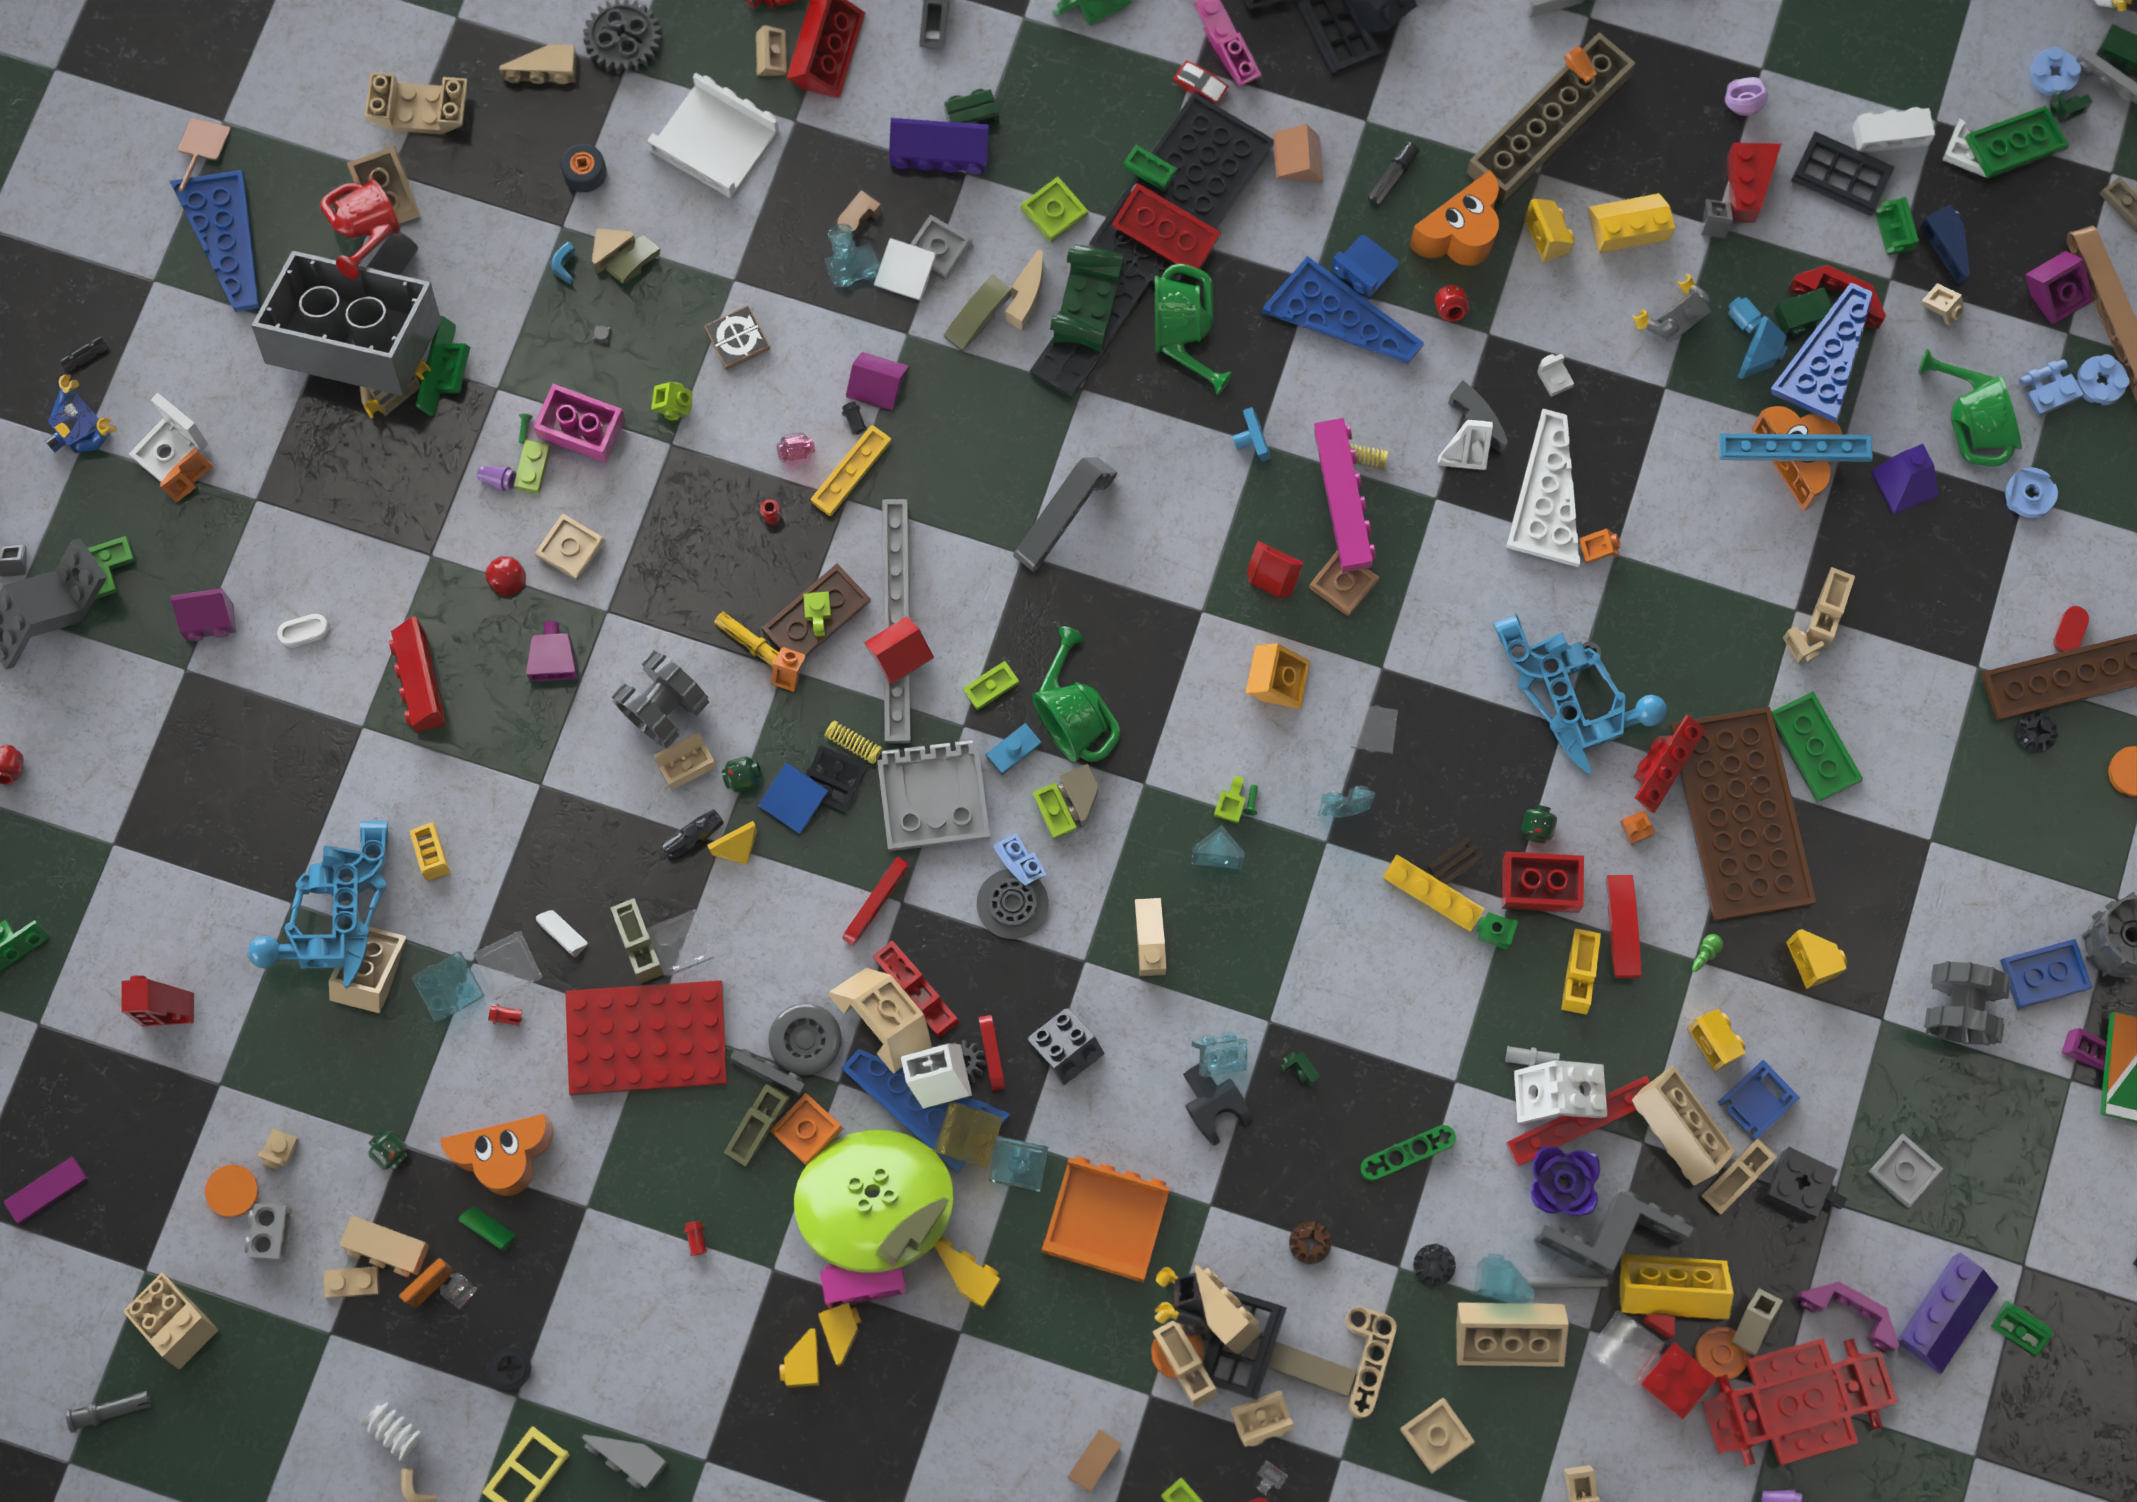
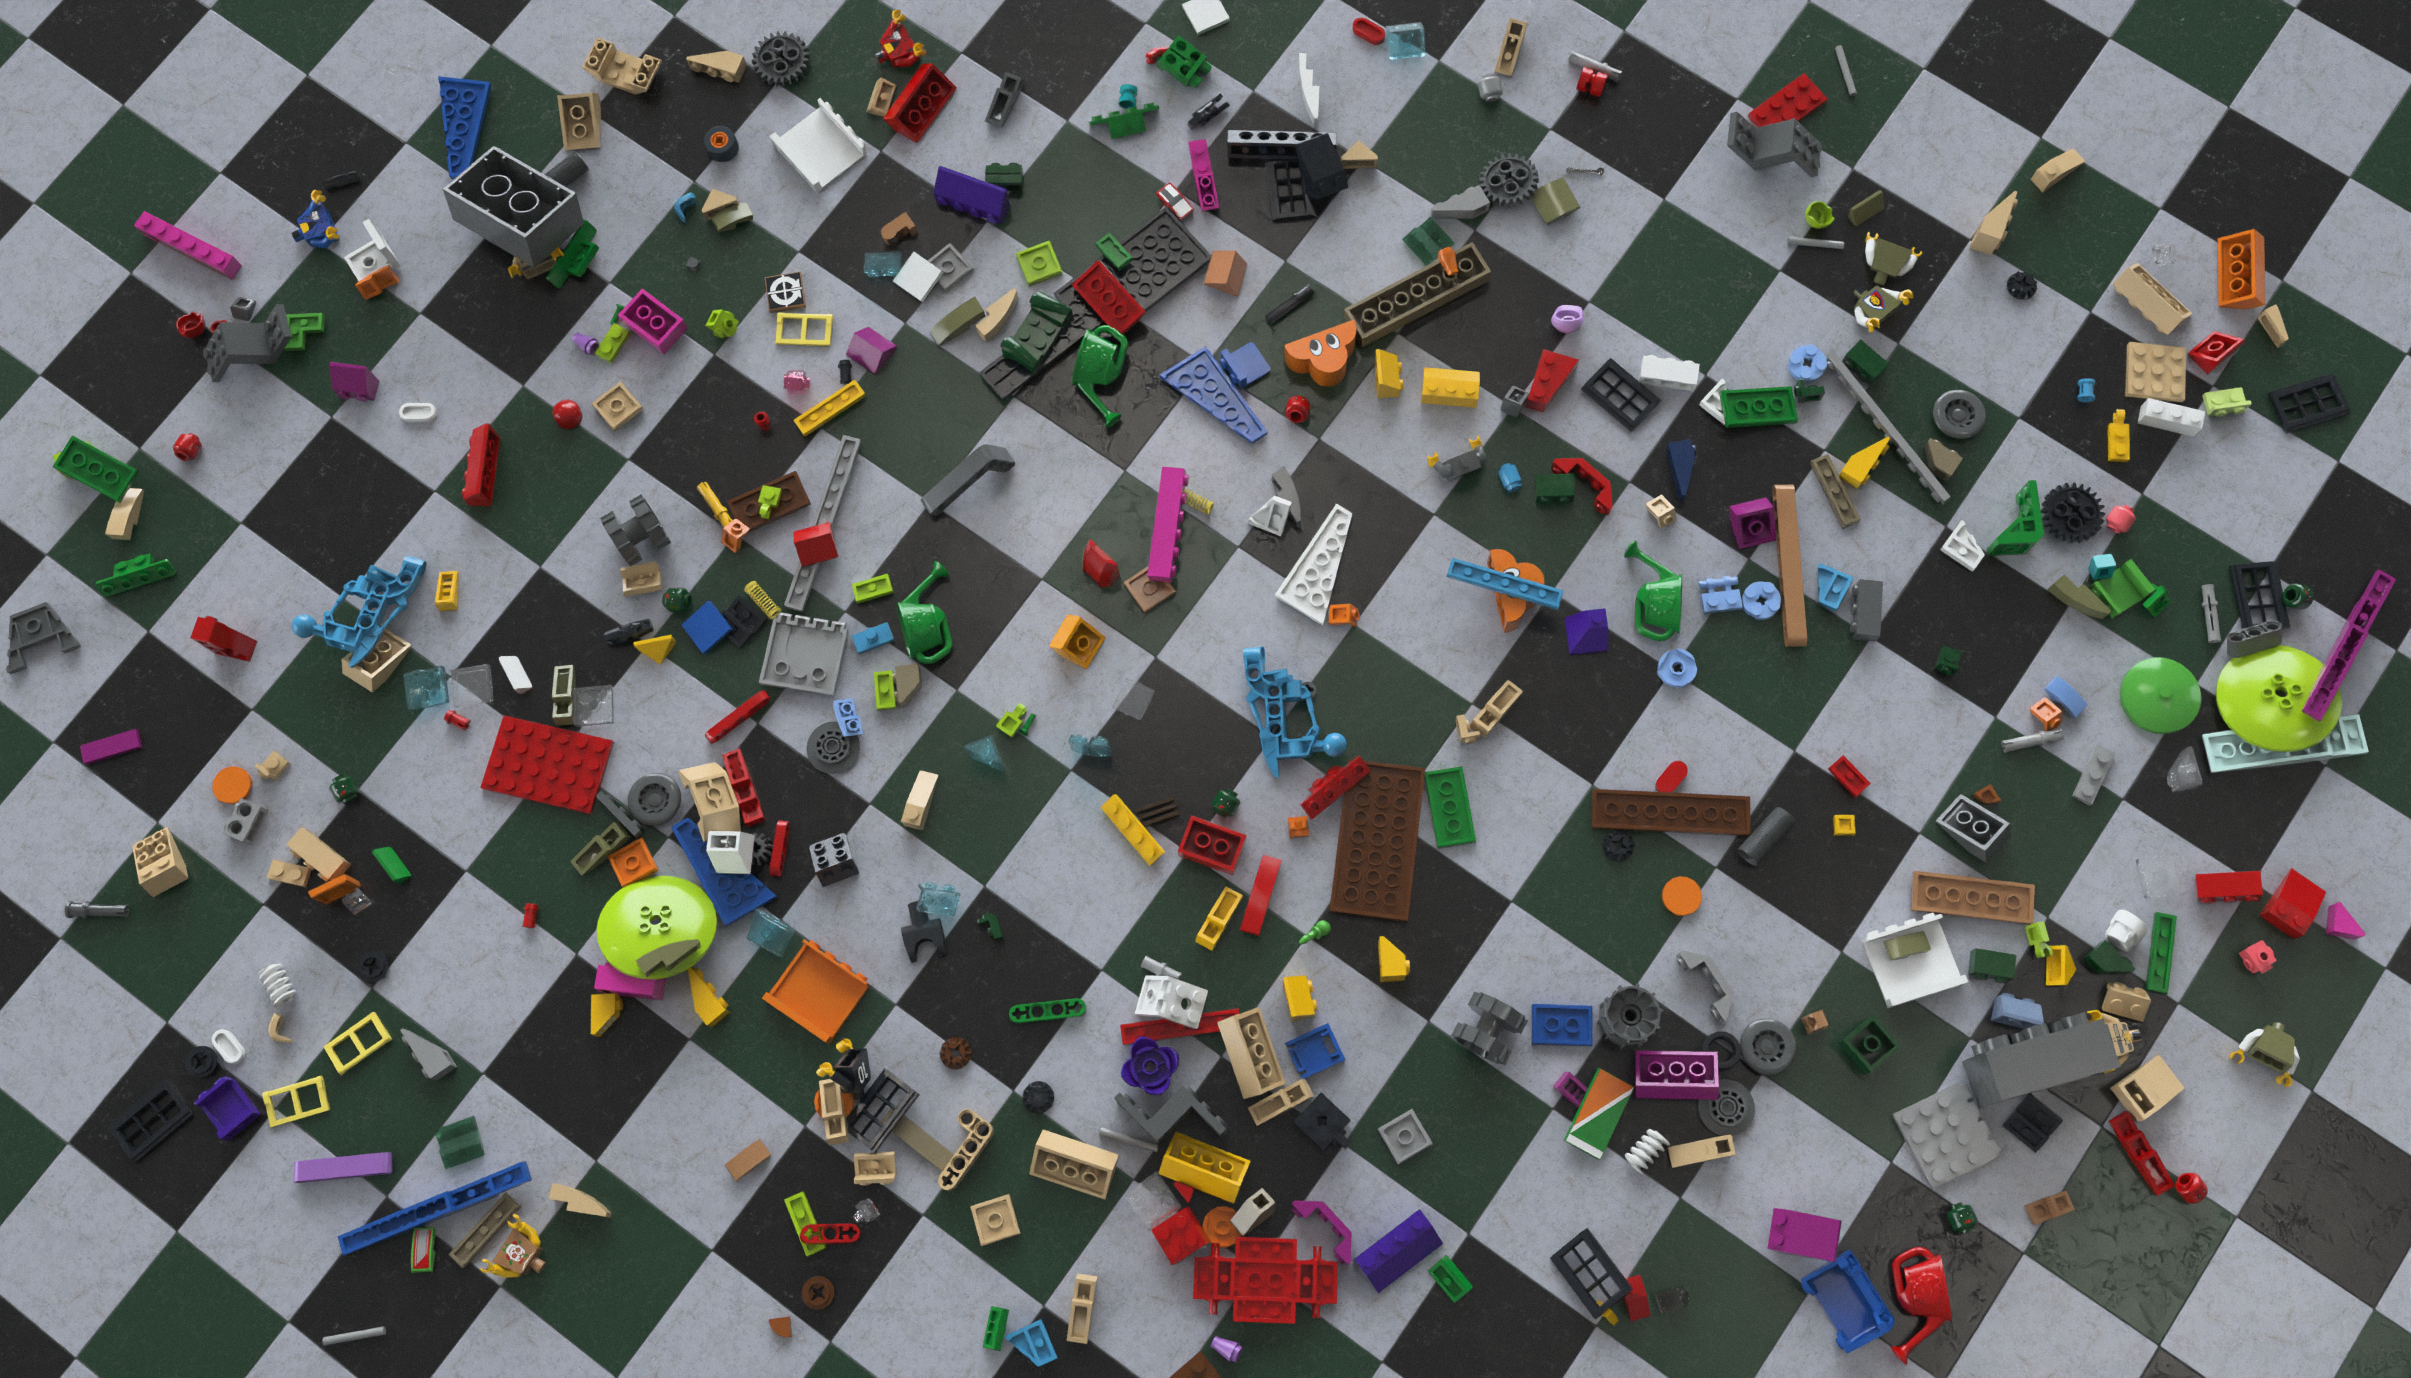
camera: 25 degrees right, 0 degrees up
(202, 140) = (472, 55): nougat piece -> none
(359, 214) = (550, 133): red piece -> none
(502, 1152) = (417, 816): orange brick -> none
(551, 656) = (577, 478): torso -> none
(783, 395) = (805, 317): none -> light yellow window
(802, 1363) = (571, 1025): yellow slope -> none
(842, 241) = (878, 241): clear light blue wheel -> none
(968, 1134) = (740, 901): clear yellow slope -> none
(1229, 1322) = (870, 1083): tan slope -> none
(1253, 436) = (1122, 464): dark azure tile -> none
(1499, 939) = (1171, 876): green brick -> none
(1501, 1280) = (1077, 1121): clear light blue slope -> none
(1538, 46) = (1427, 241): none -> clear green slope
(1554, 374) = (1355, 481): white bracket -> none
(1764, 349) = (1514, 506): dark azure slope -> none
(1824, 364) = (1547, 531): wing -> none
(1896, 226) = (1646, 444): green hinge -> none

